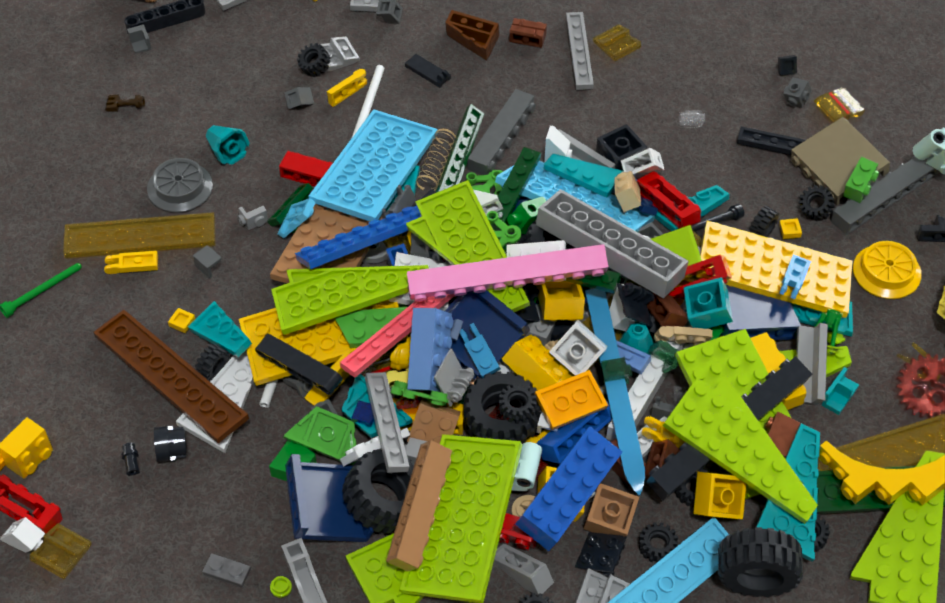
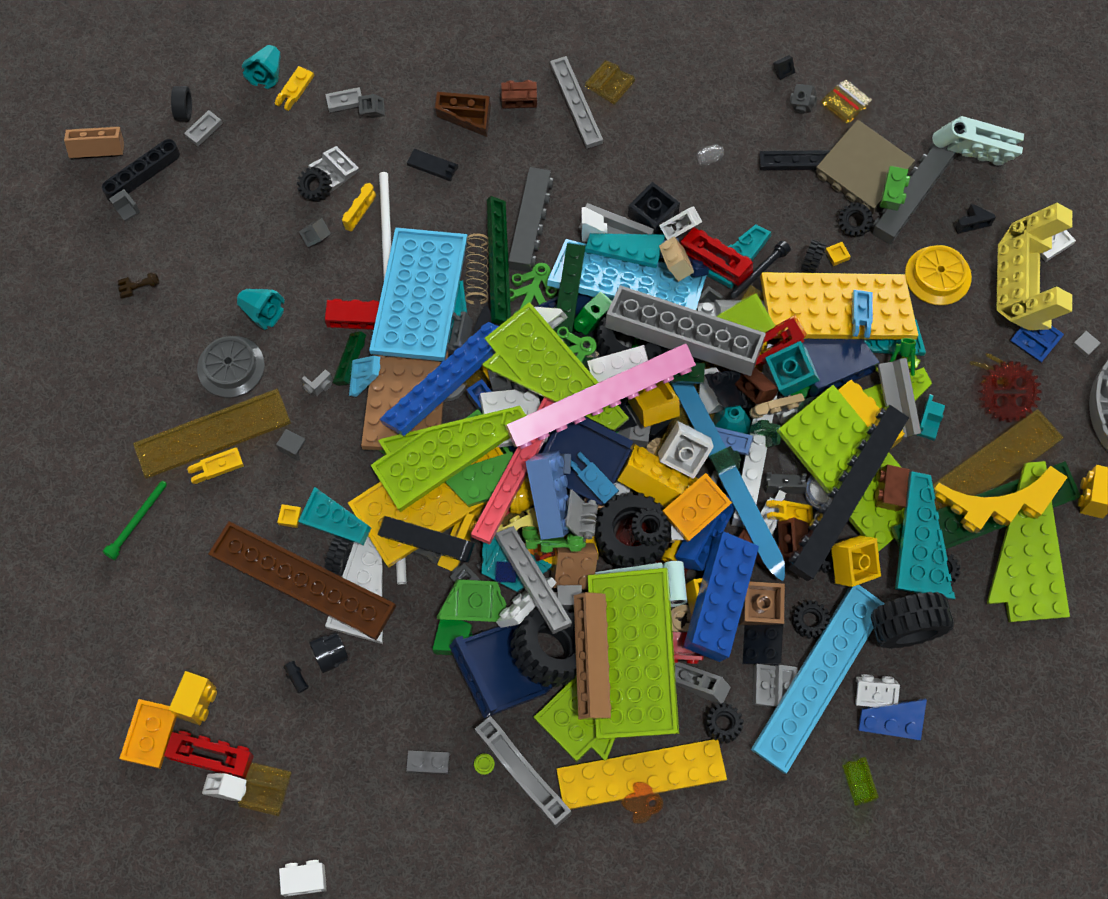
camera: 15 degrees left, 15 degrees up
(730, 435) = (851, 503): lime wing -> none

